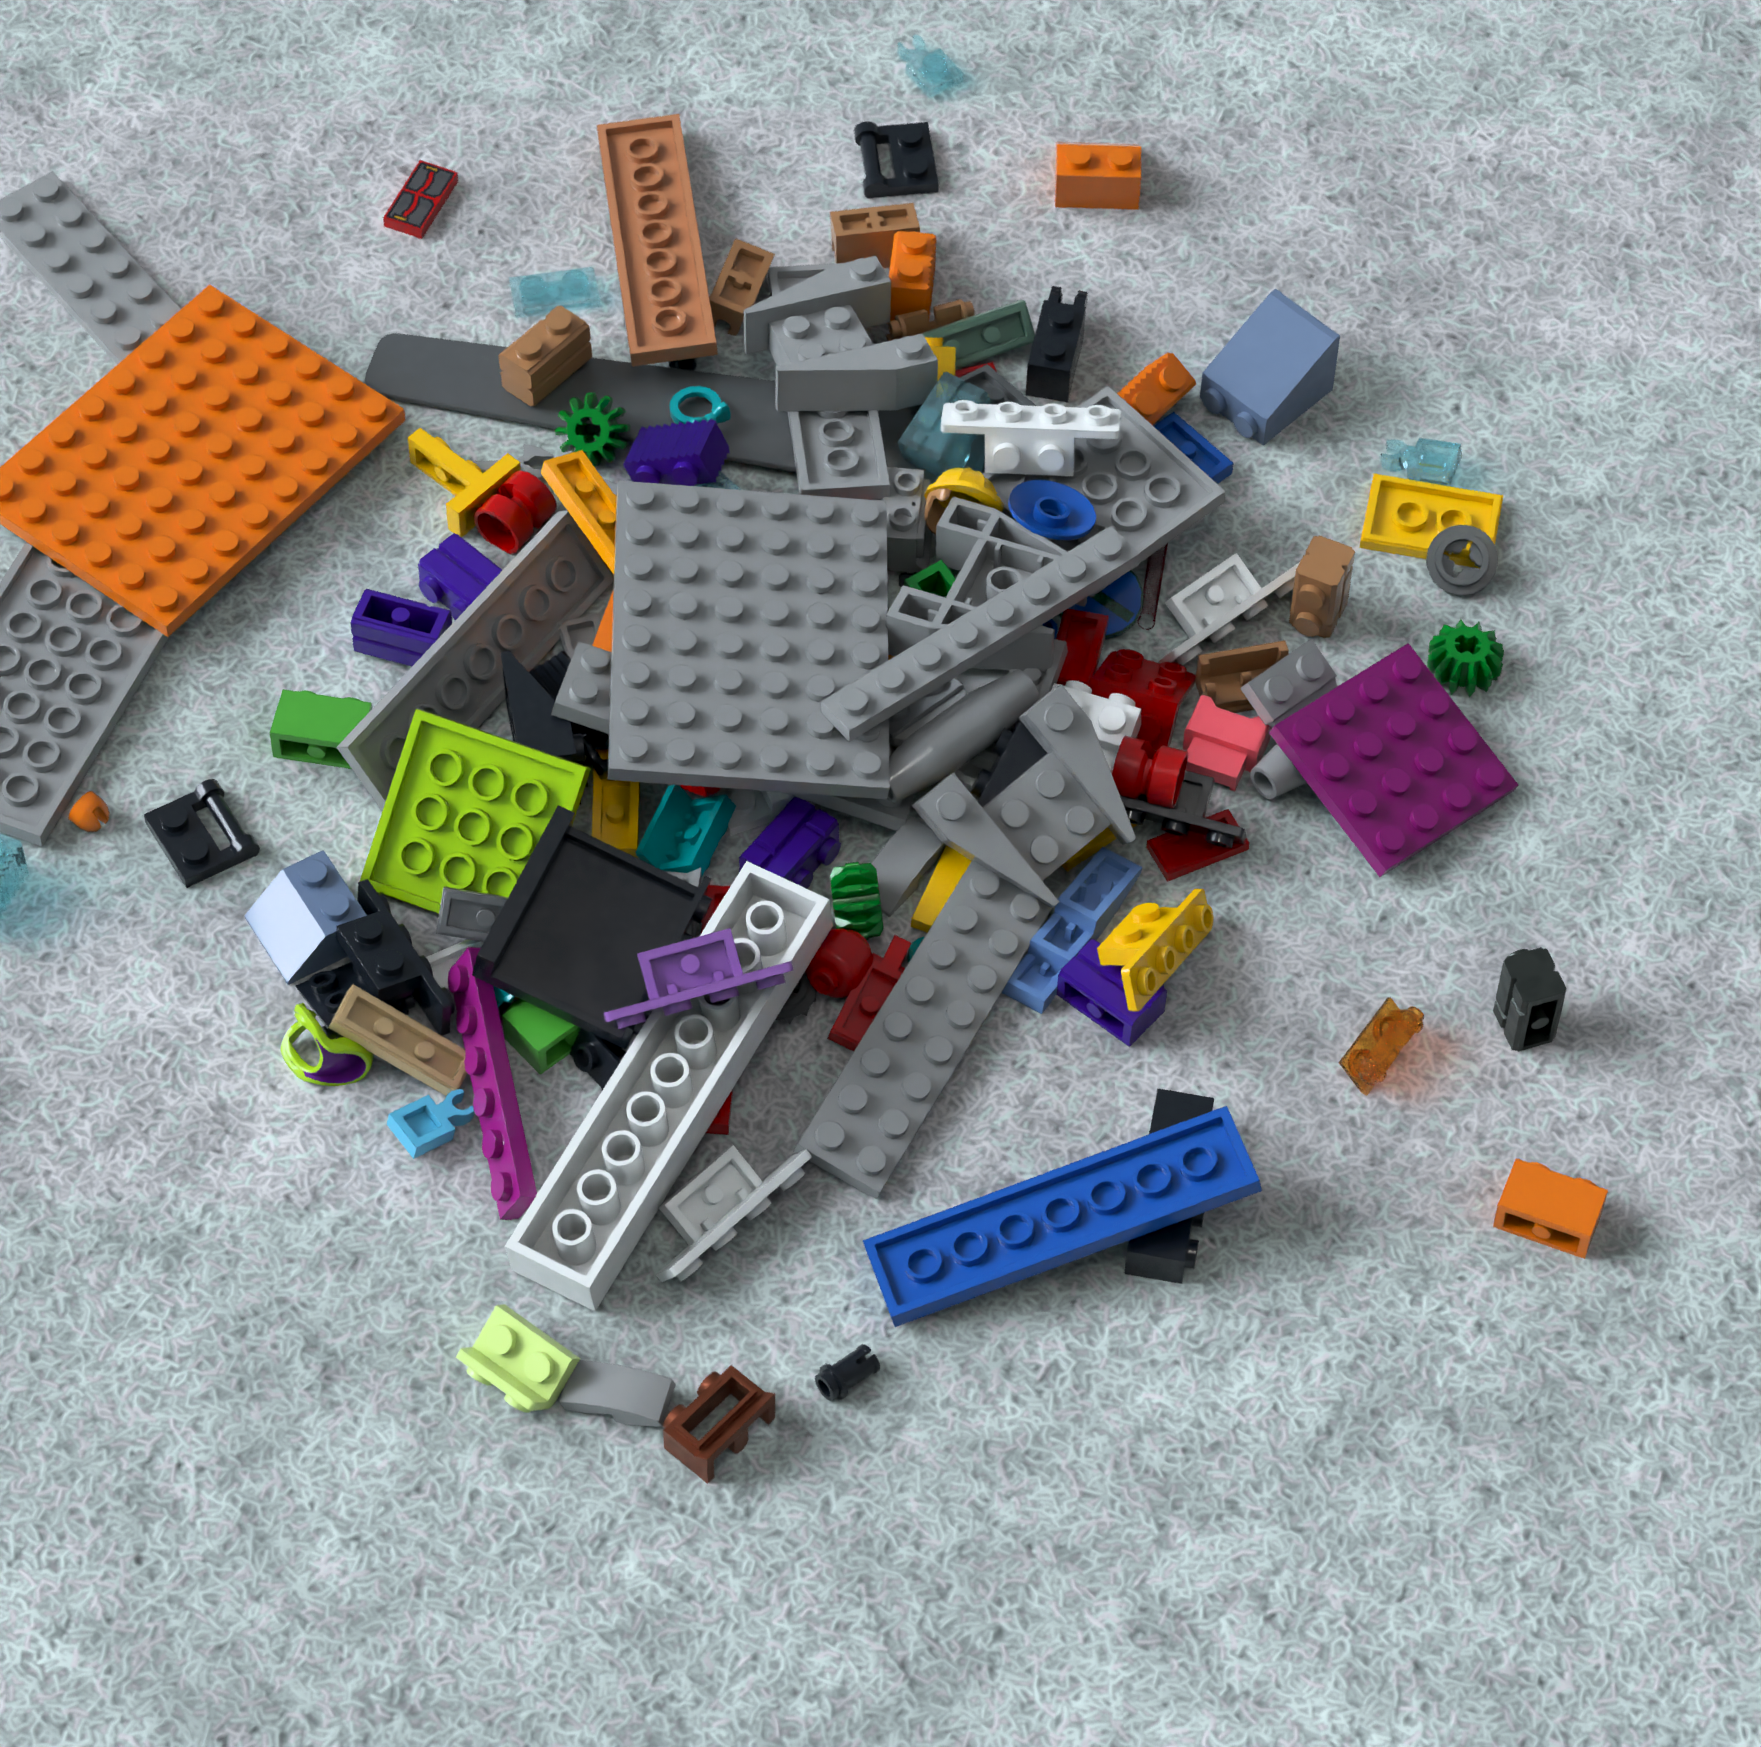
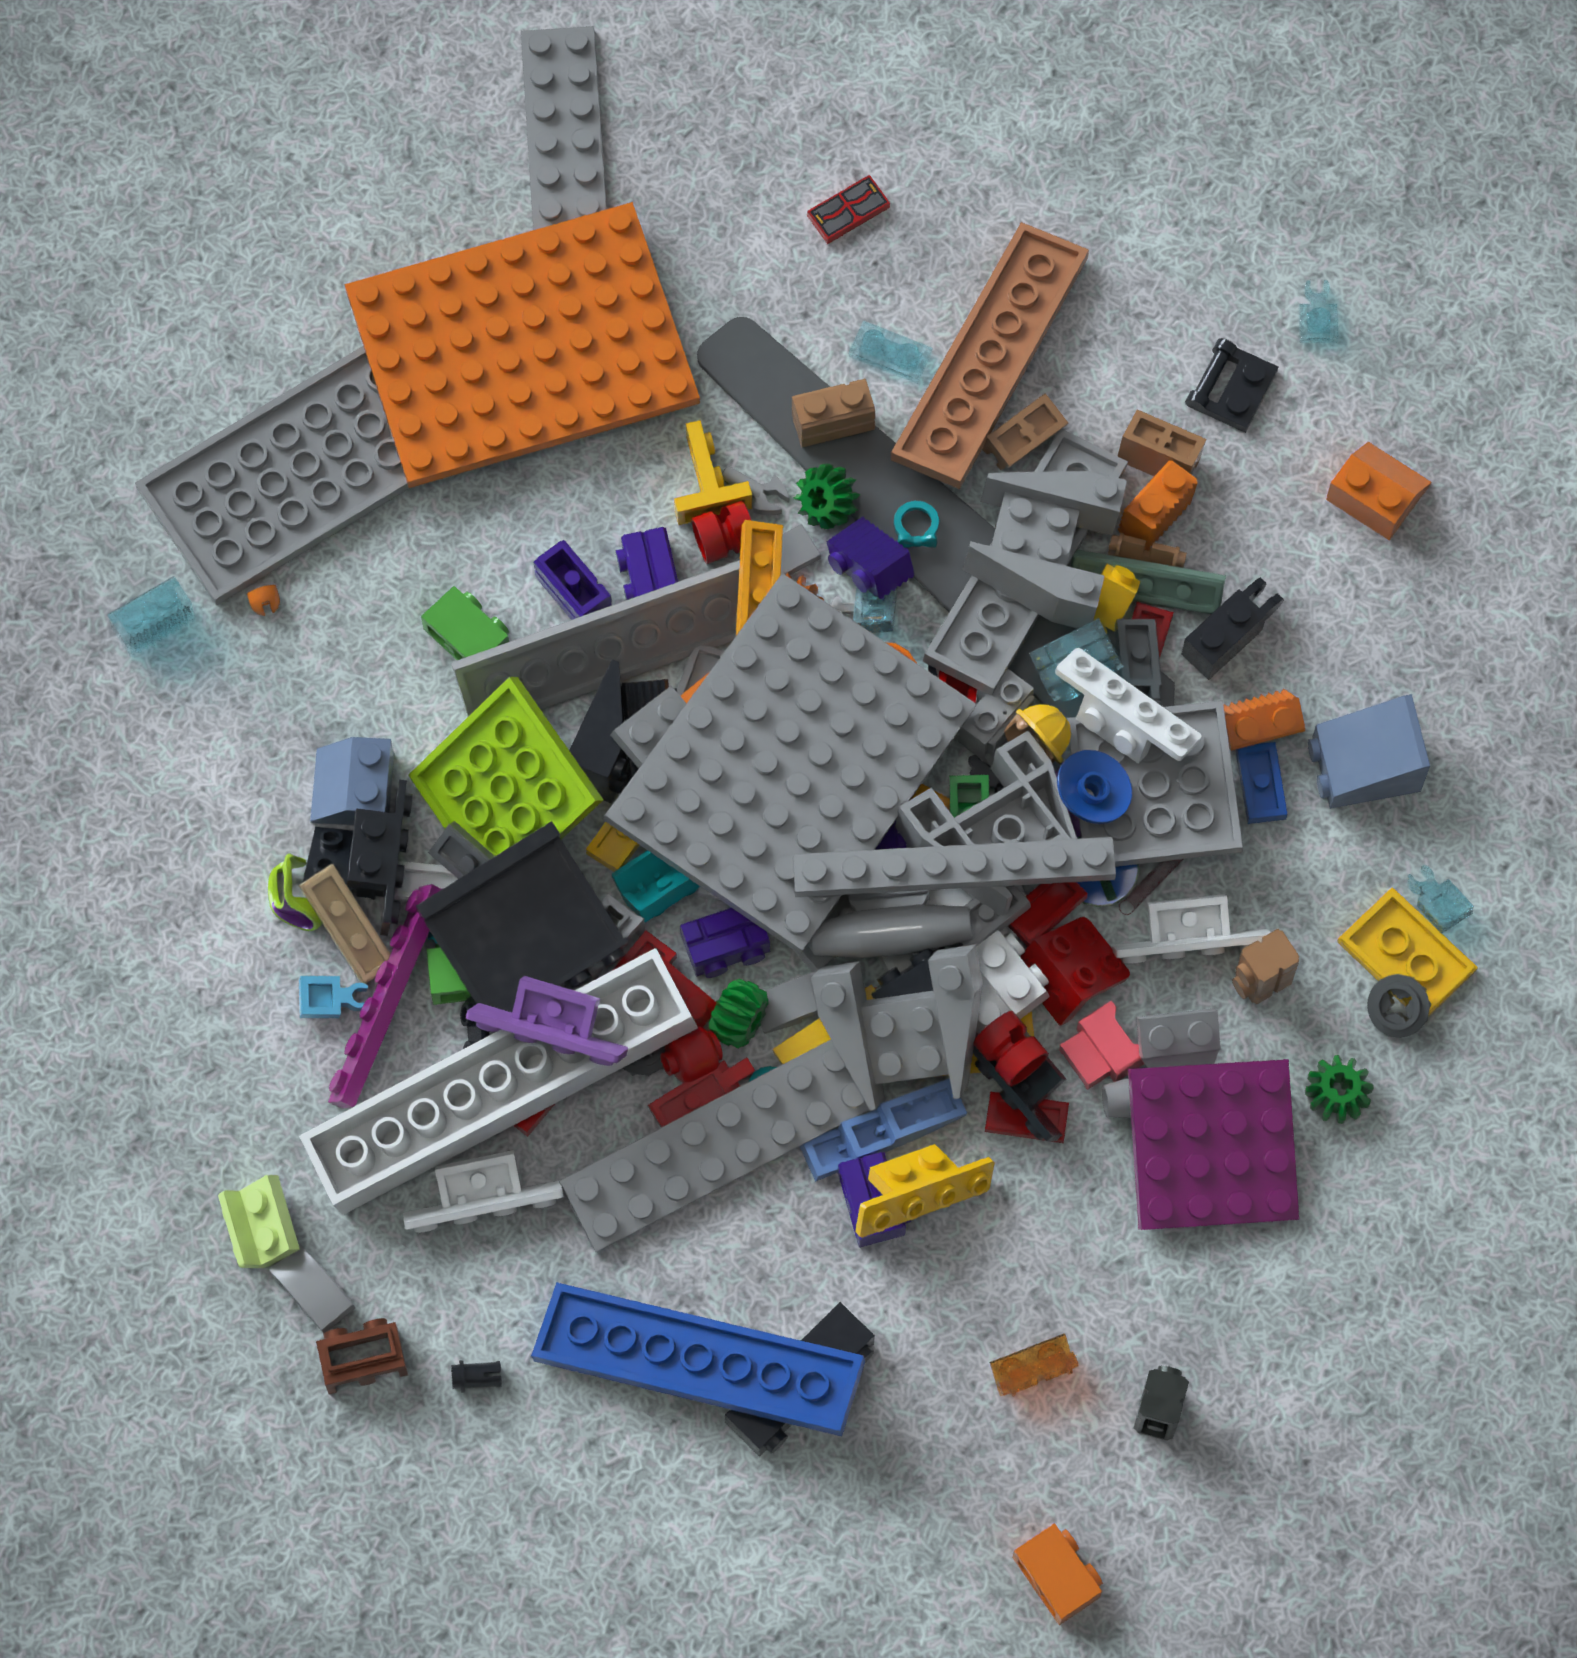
camera: 35 degrees right, 15 degrees up
(188, 841) = (317, 663): black plate -> none
(1225, 672) = (1153, 996): medium nougat hinge -> none

